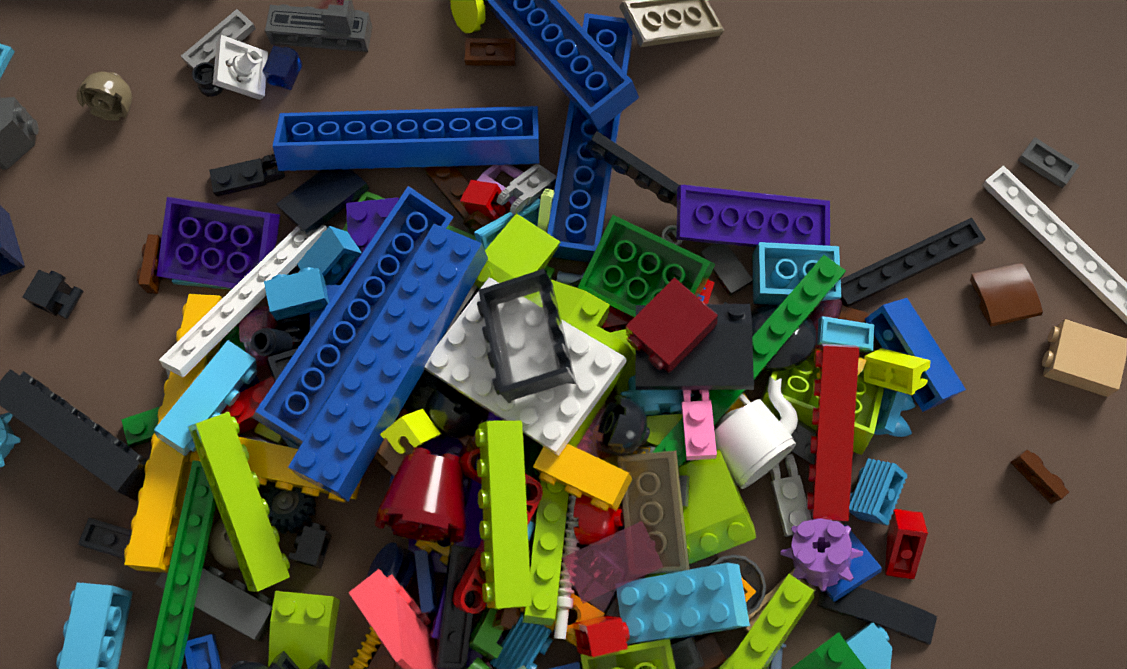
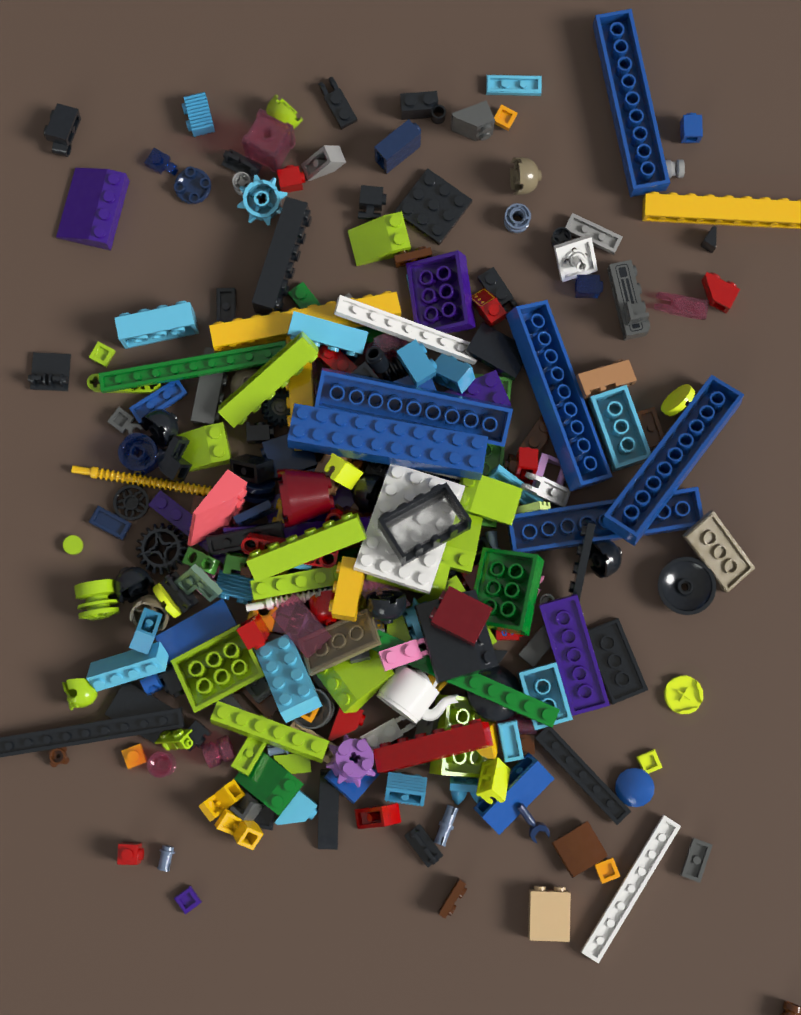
camera: 70 degrees right, 10 degrees up
(23, 94) = (505, 117): none -> light orange plate
(96, 220) = (433, 206): none -> black plate
(108, 298) = (379, 239): none -> lime slope
(151, 114) = (519, 210): none -> sand blue wheel
(260, 190) = (488, 307): none -> red slope
(353, 521) = (286, 457): none -> dark blue brick
(360, 561) = (252, 468): none -> black hinge
(409, 77) = (606, 378): none -> medium nougat wedge
(477, 80) = (619, 428): none -> medium azure brick
(643, 144) = (605, 558): none -> black cylinder
(708, 56) = (699, 582): none -> black dish
(764, 549) = (346, 723): none -> red slope
(776, 175) = (616, 662): none -> black tile
(800, 641) = (294, 763): none -> lime tile
(836, 117) = (683, 694): none -> neon yellow tile
(911, 181) = (649, 761): none -> neon yellow tile
(938, 455) = (446, 825): none -> sand blue pin
(941, 205) = (634, 787): none -> blue dish
(958, 494) = (423, 845): none -> black hinge
(964, 340) = (535, 827): none -> dark blue piece
(1041, 269) = (607, 870): none -> light orange plate

